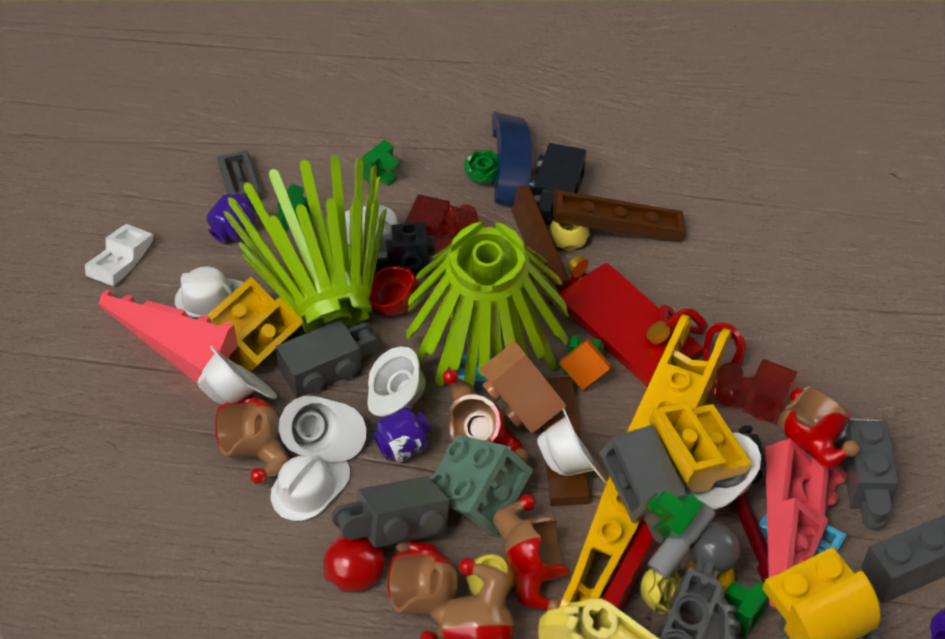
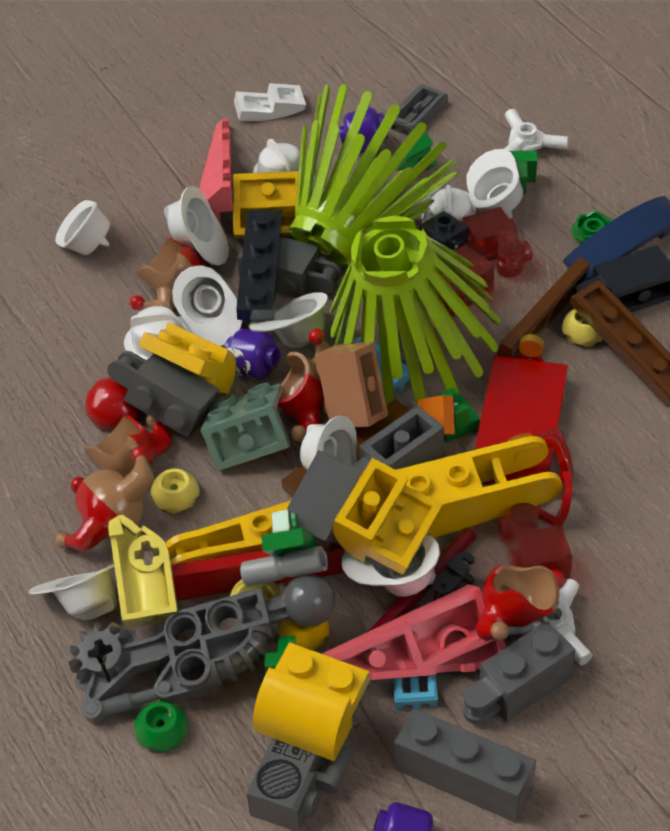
camera: 55 degrees right, 0 degrees up
(124, 460) = (84, 229): none -> white piece
(325, 365) = (260, 265): none -> black plate
(349, 138) = (526, 137): none -> white piece
(375, 468) = (194, 354): none -> yellow brick
(396, 184) = (495, 182): none -> white piece
(531, 552) = (214, 492): piece -> none
(603, 403) = (405, 442): none -> dark grey brick

